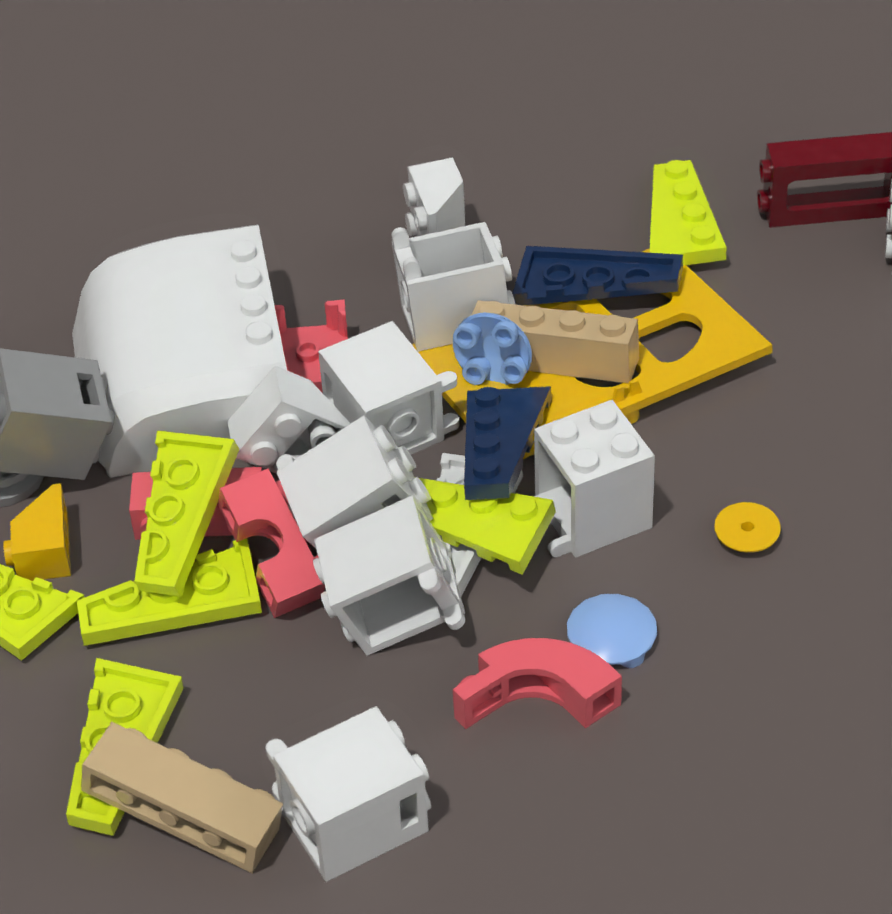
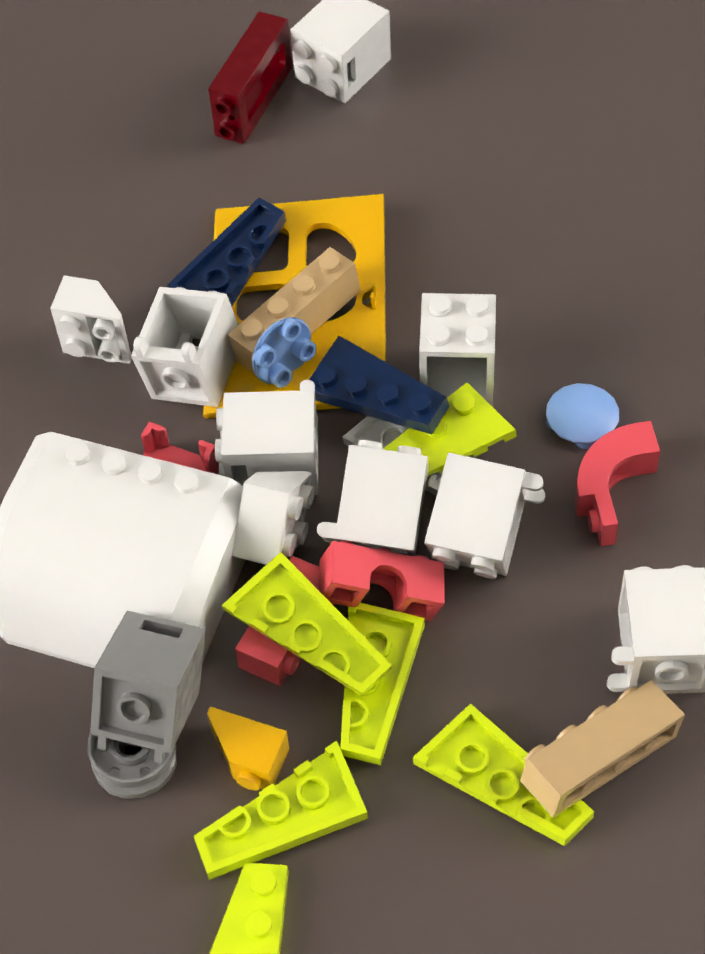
camera: 60 degrees left, 10 degrees up
(682, 216) = (211, 185): neon yellow wing -> none
(747, 527) = (538, 293): yellow piece -> none

